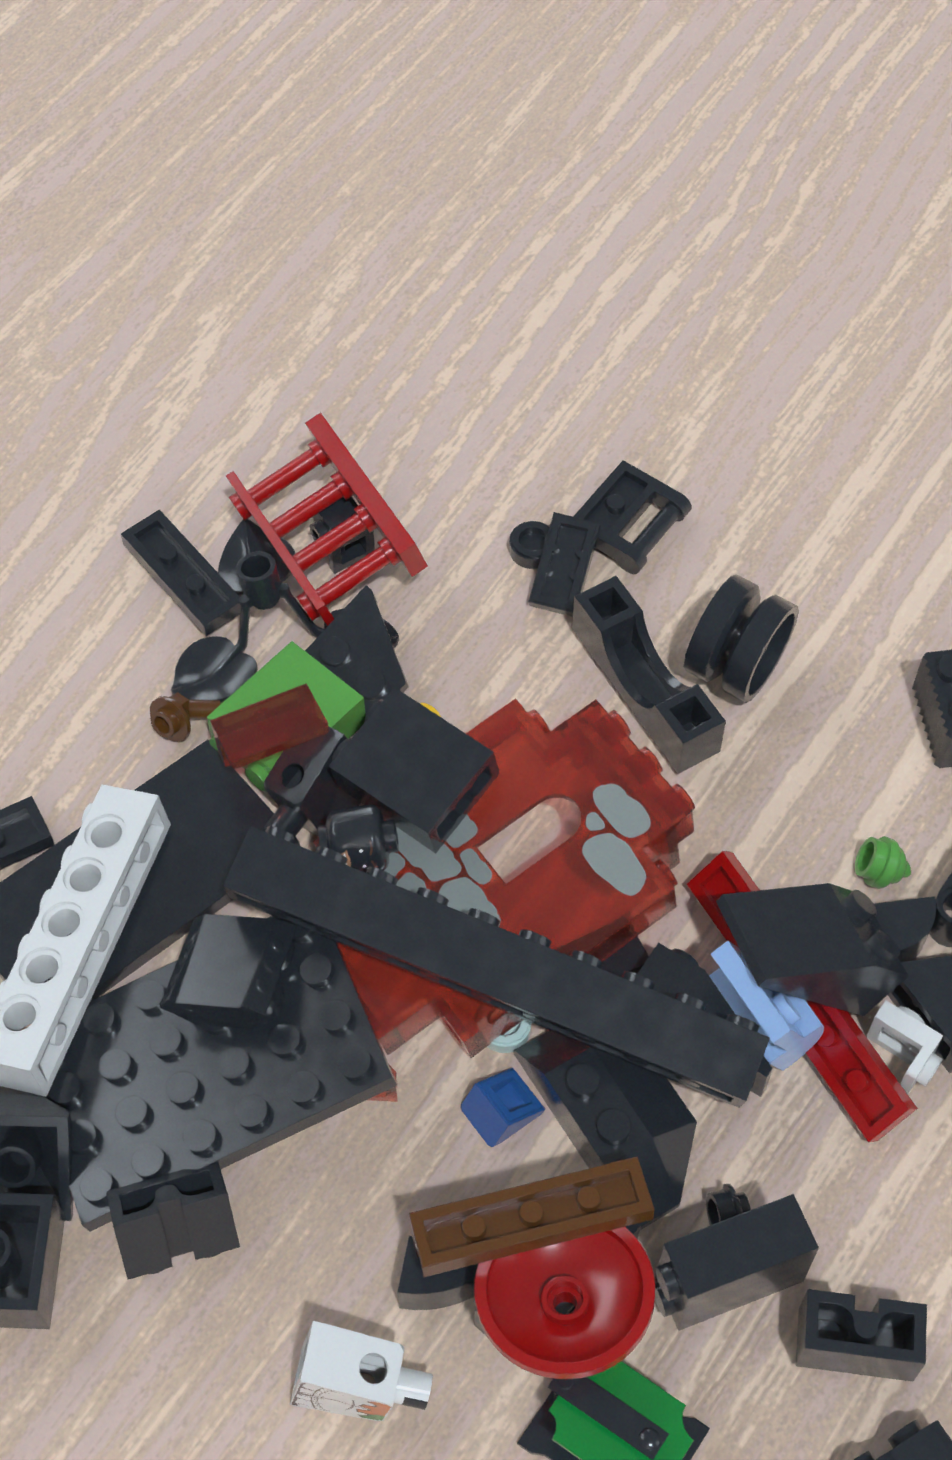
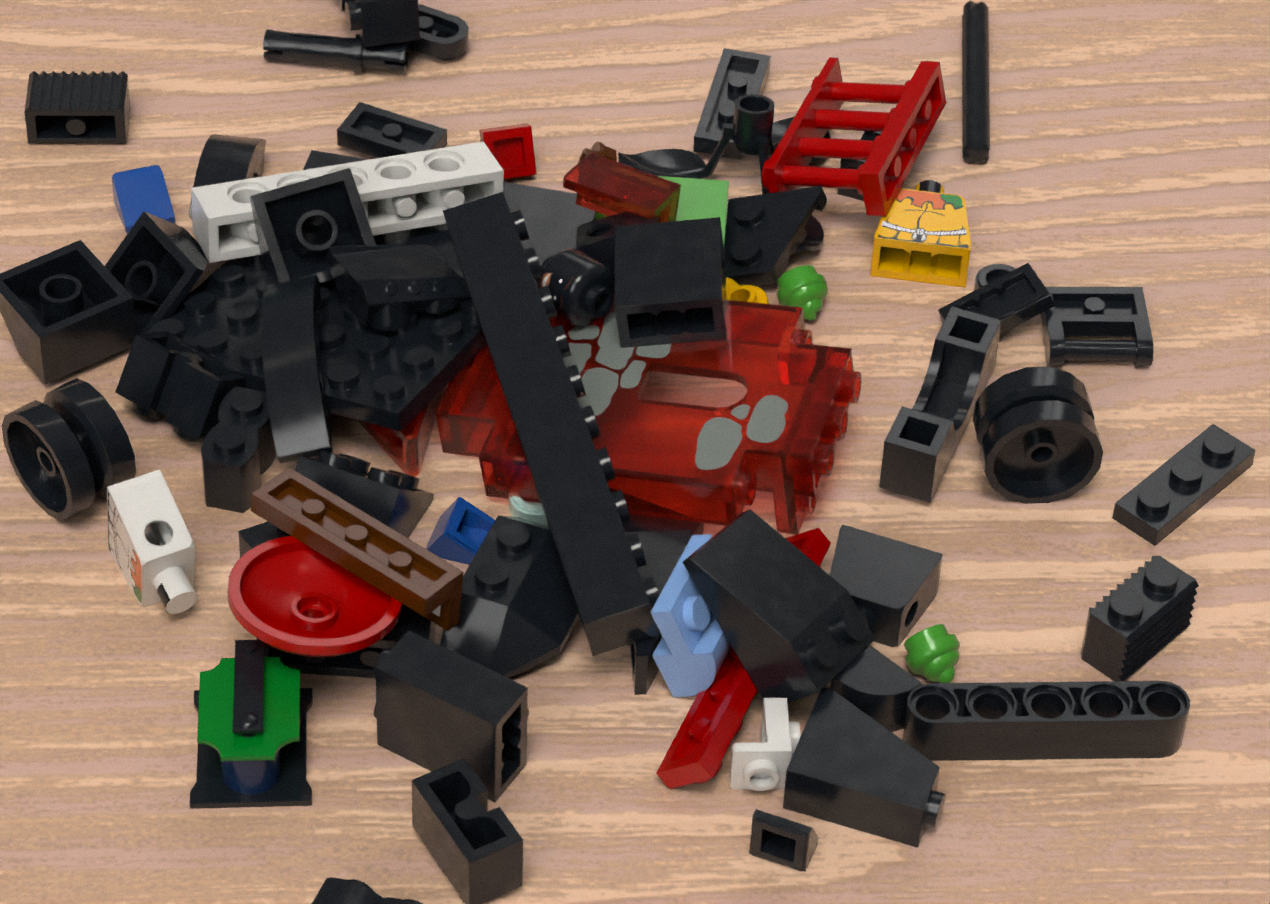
camera: 50 degrees right, 15 degrees down
(95, 764) = (511, 148): none -> red tile
(111, 995) = (306, 218): none -> black slope
(187, 1372) = (68, 448): none -> black wheel
(252, 1114) = (293, 368): none -> black slope
(287, 1224) = (237, 450): none -> black brick
(301, 397) = (975, 82): none -> black axle
(415, 1164) = (383, 494): none -> black slope
(438, 676) = (802, 289): none -> bright green plate
(458, 551) = (923, 238): none -> yellow torso
(792, 846) = (886, 581): none -> black torso
(825, 580) = (1183, 484): none -> black plate

